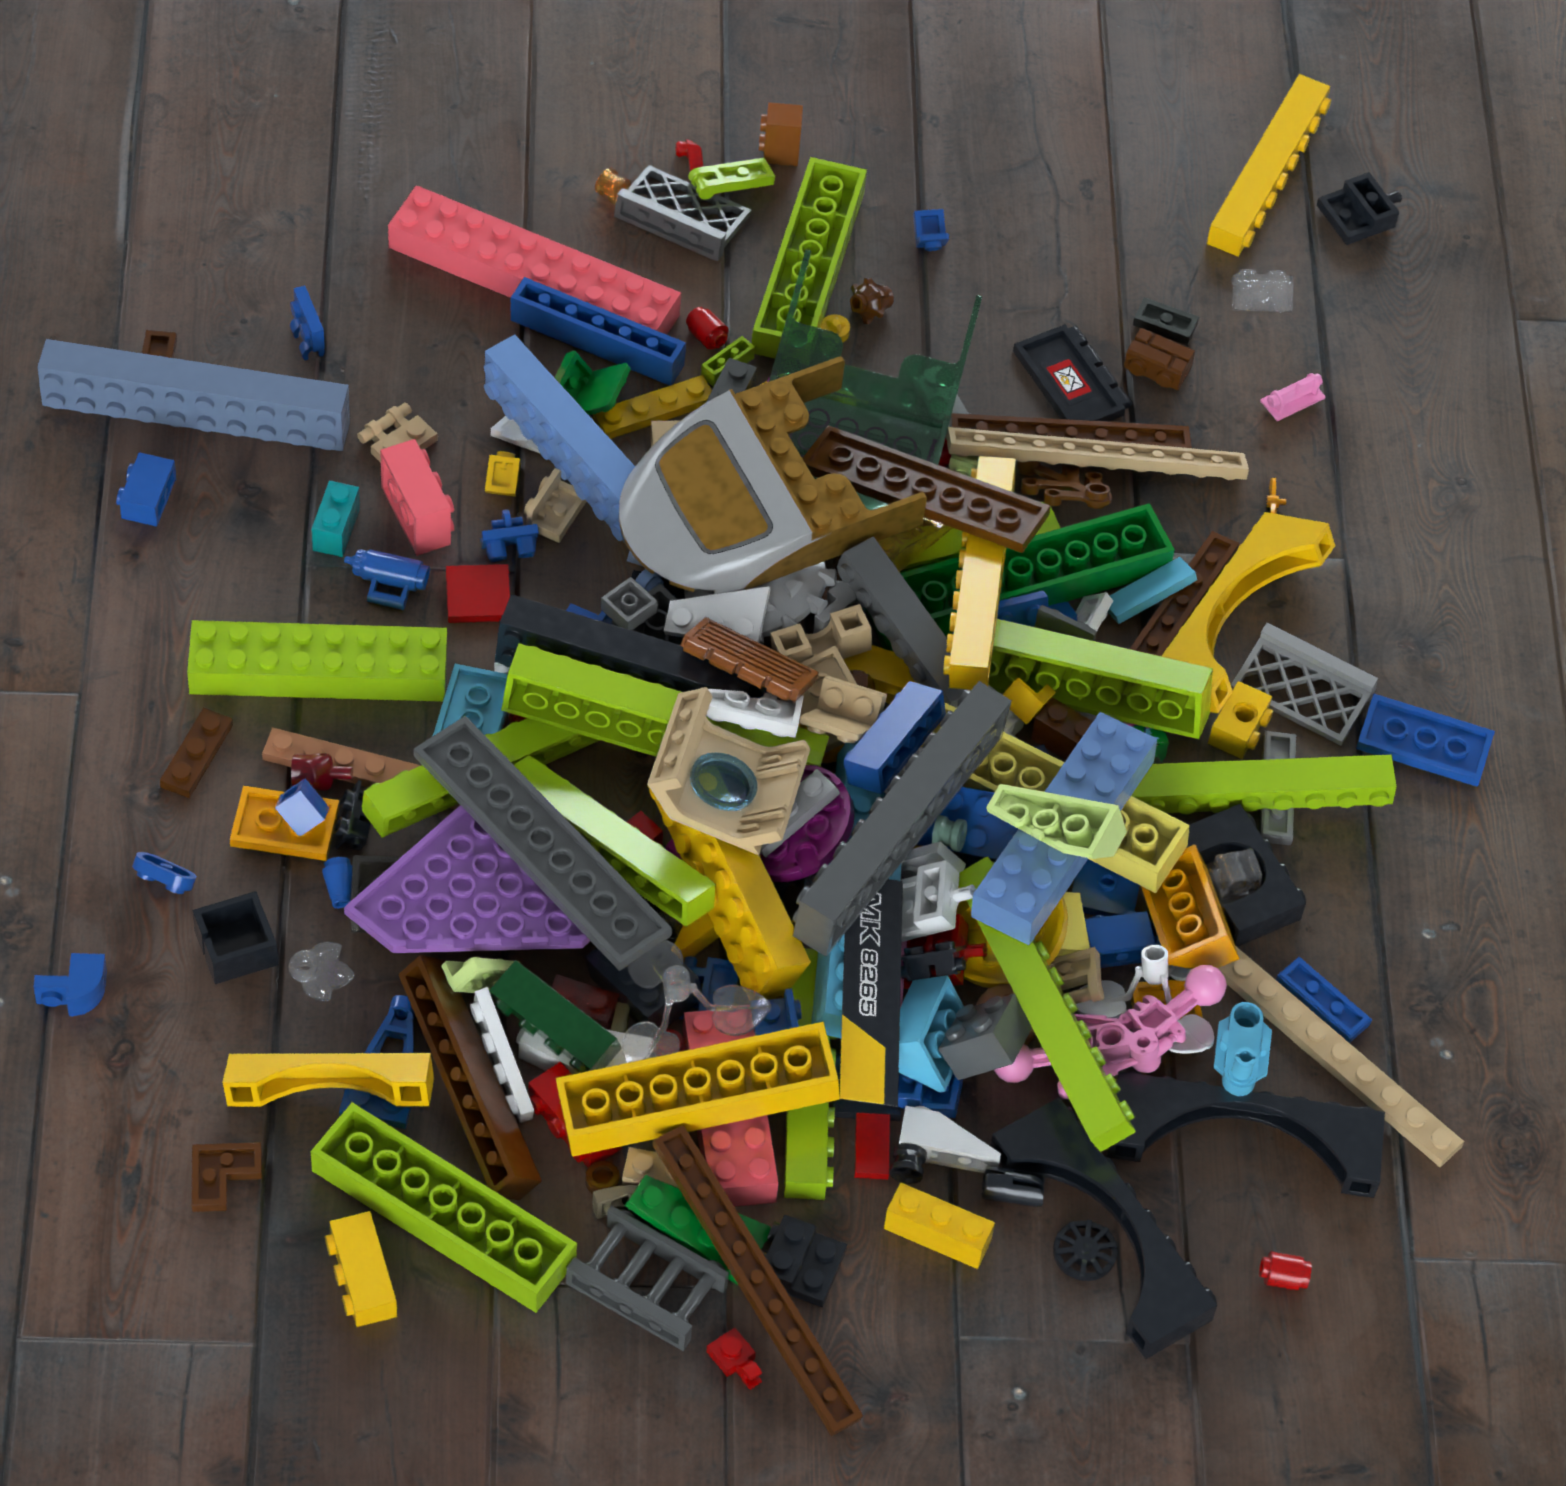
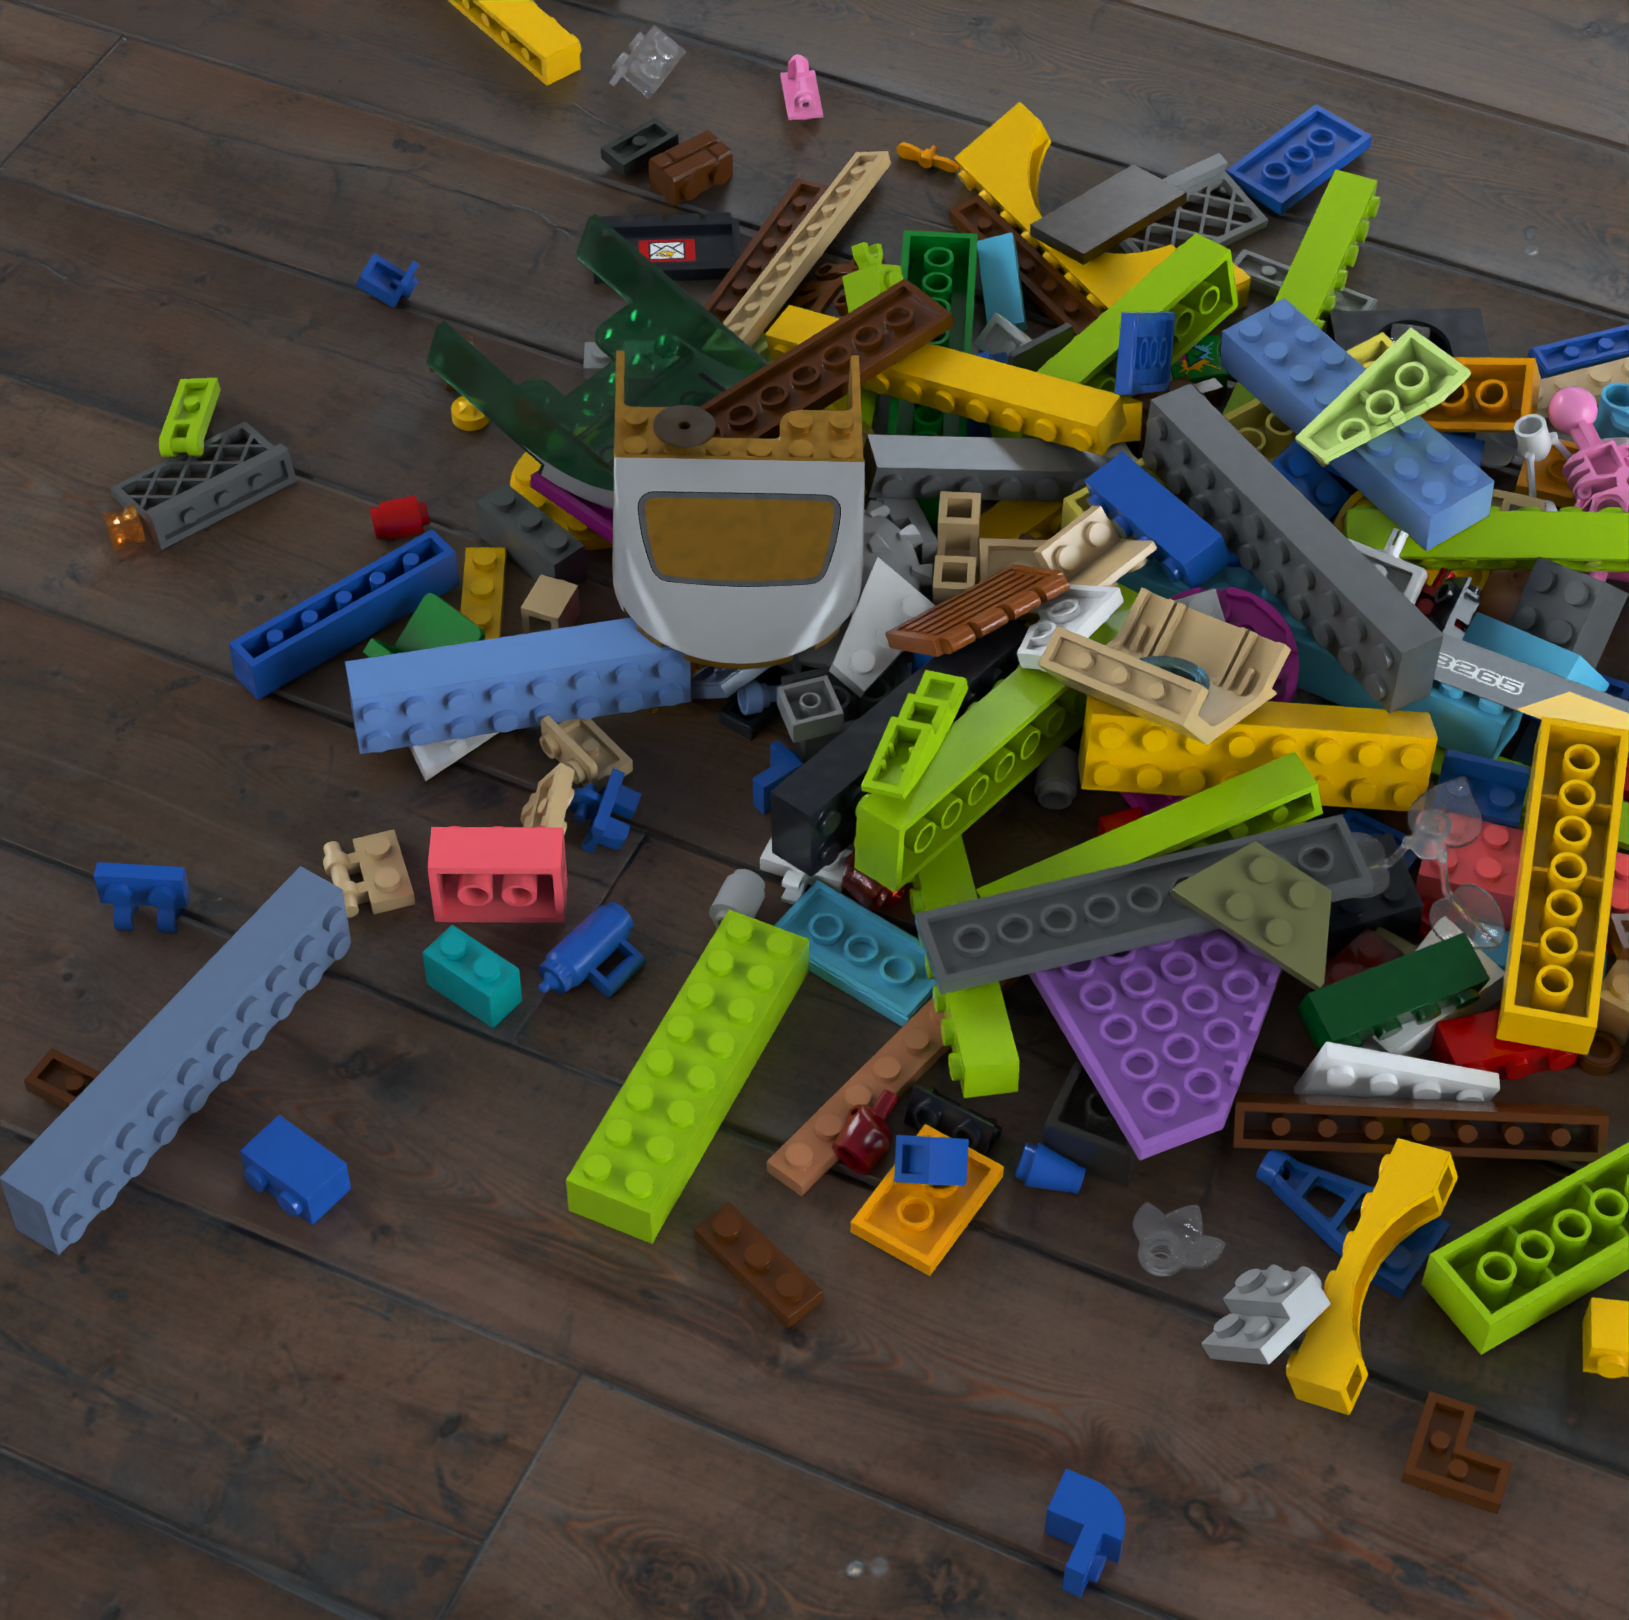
camera: 60 degrees left, 5 degrees down
(156, 868) = (954, 1354): blue plate -> none
(235, 937) = (1099, 1308): black piece -> none
(277, 1032) = (1266, 1314): none -> light grey plate
(470, 637) = (740, 893): none -> light grey brick
(474, 973) = (1281, 1064): yellowish green bracket -> none
(477, 592) = (665, 876): red tile -> none
(489, 502) = (551, 800): none -> tan plate
(502, 474) = (501, 784): yellow bracket -> none
(503, 254) = (175, 655): coral brick -> none
(561, 906) = (1266, 908): none -> olive wing
(600, 655) = (915, 735): none -> lime slope
(692, 152) = (122, 440): red arm -> none
(739, 350) = (461, 516): lime piece -> none
(776, 415) = (684, 426): none -> dark brown piece
(782, 134) = (168, 342): dark orange brick -> none
(818, 223) = (368, 390): lime brick -> none
(1050, 671) = (1144, 352): none -> blue tile
(1066, 500) = (871, 277): none -> lime brick
(1249, 624) = (1108, 214): none -> tile

